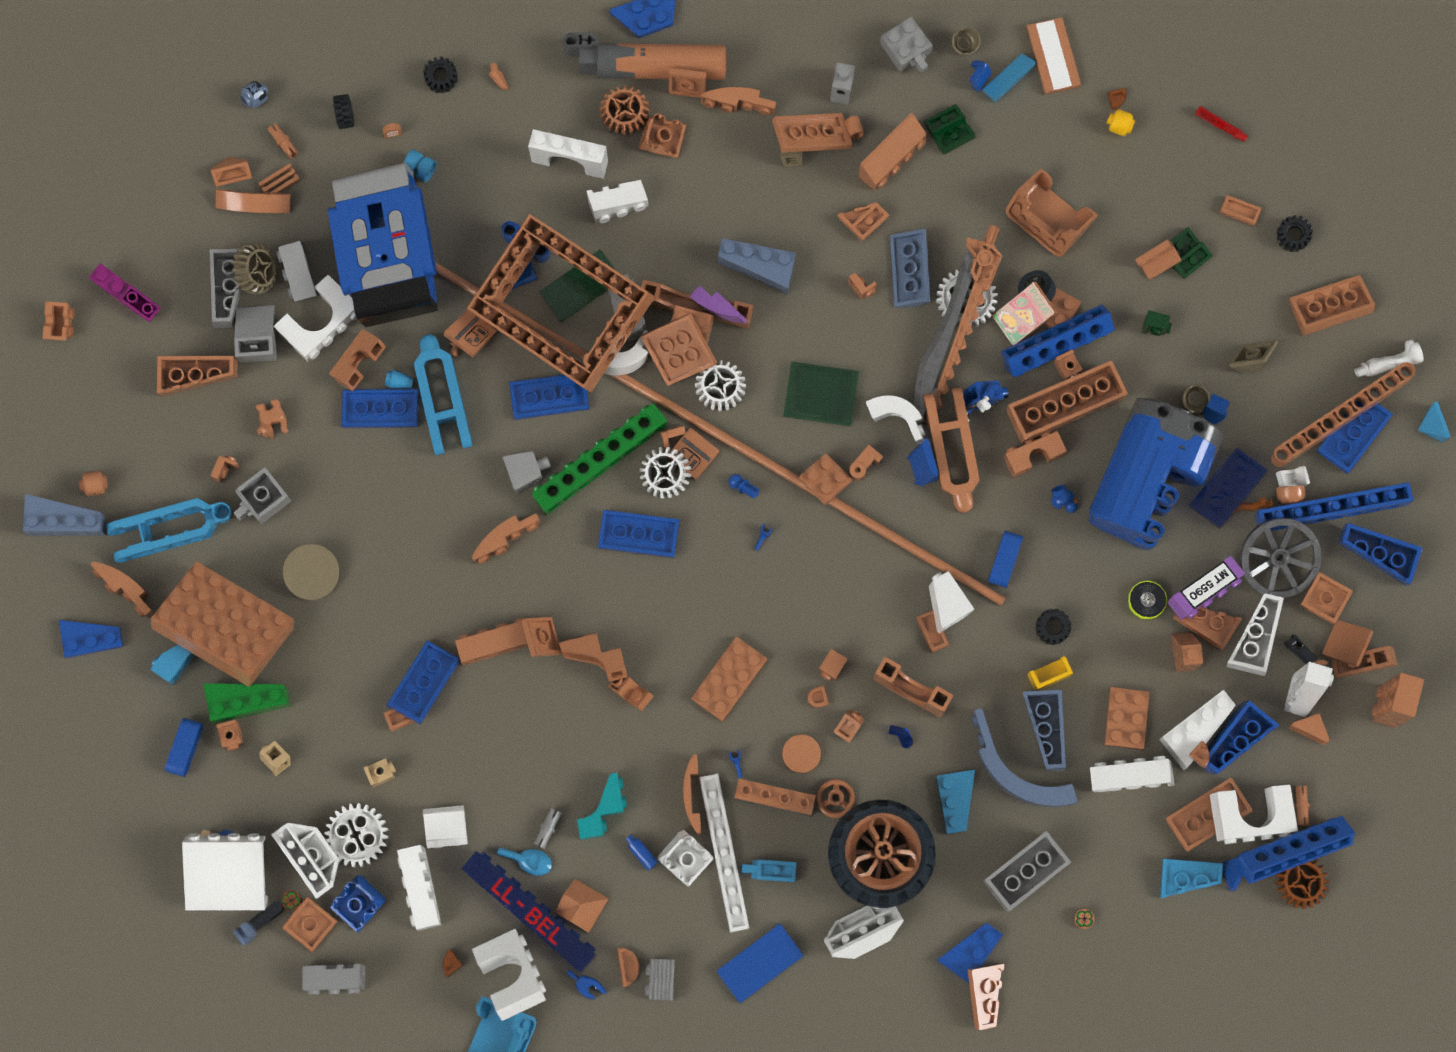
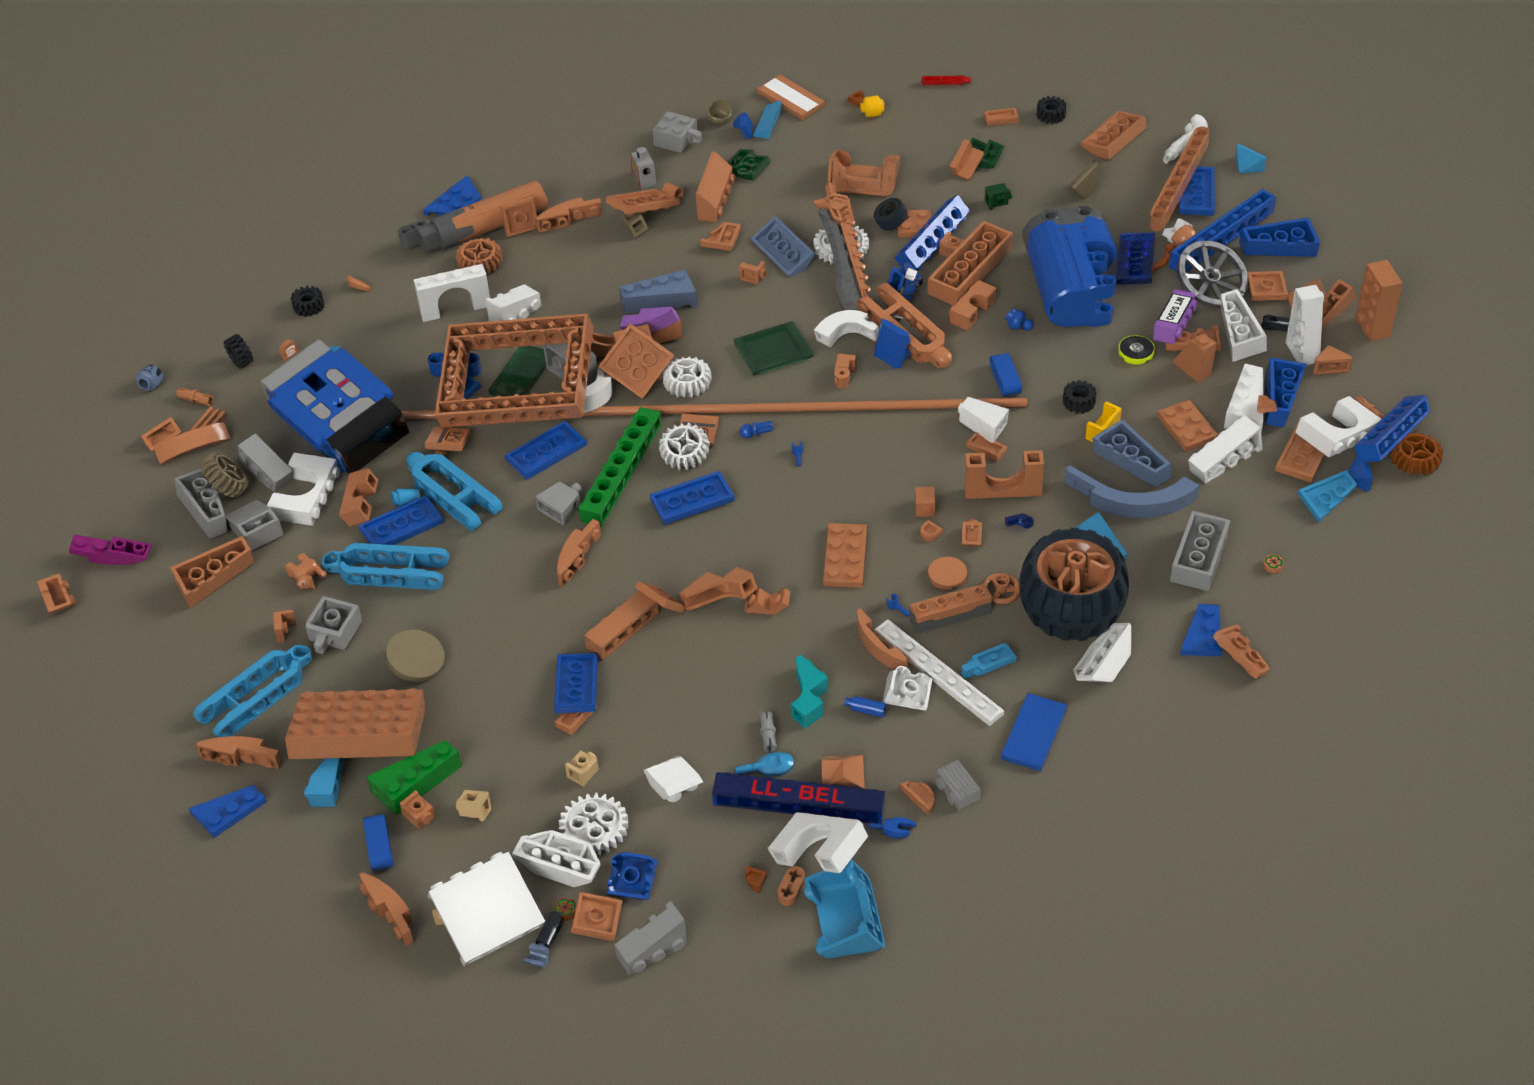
camera: 30 degrees left, 30 degrees down
(55, 518) = (146, 730): sand blue wedge -> none
(93, 483) = (161, 692): nougat head -> none
(160, 808) = (387, 904): none -> nougat slope
(308, 427) = (408, 577): none -> dark azure piece
(419, 887) = (681, 828): white wedge -> none
(470, 985) = (787, 884): none -> nougat beam
(662, 136) = (521, 259): nougat slope -> none
(671, 432) = (669, 421): nougat tile -> none
(825, 479) = (820, 393): nougat plate -> none
(1024, 313) = (893, 227): tile -> none

